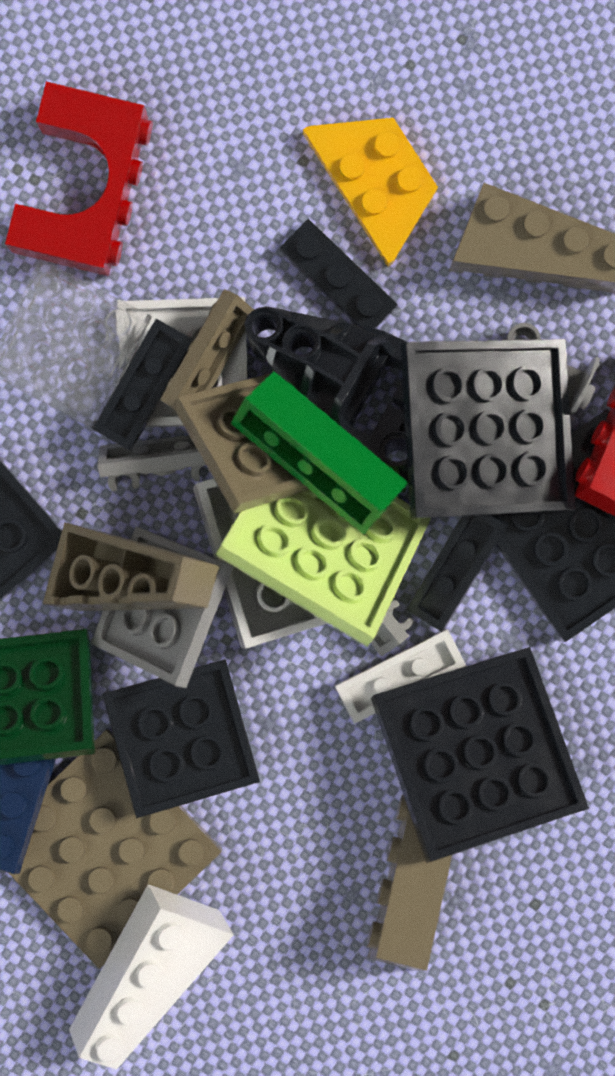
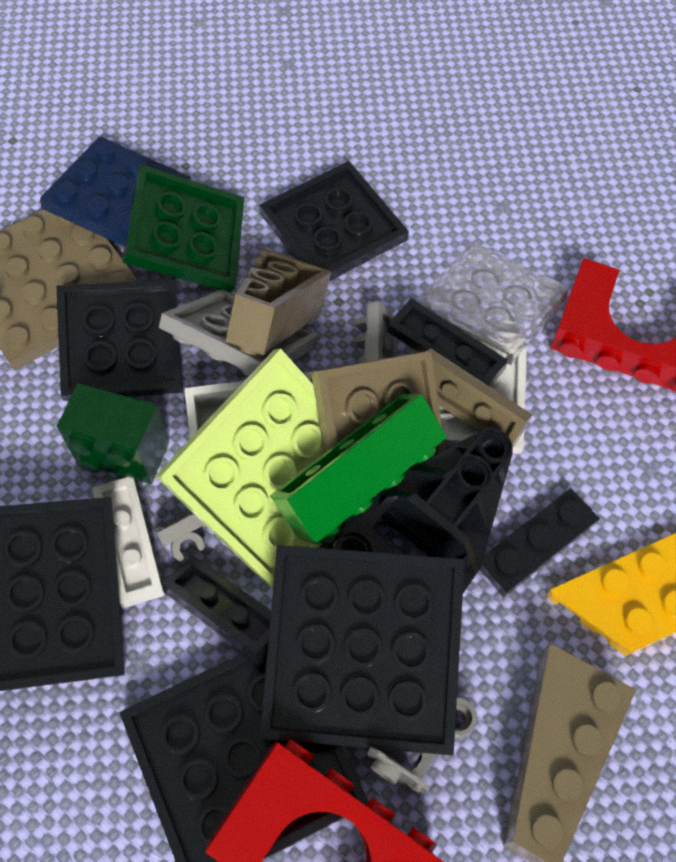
camera: 100 degrees right, 25 degrees down
(301, 712) = (114, 434): none -> dark green brick

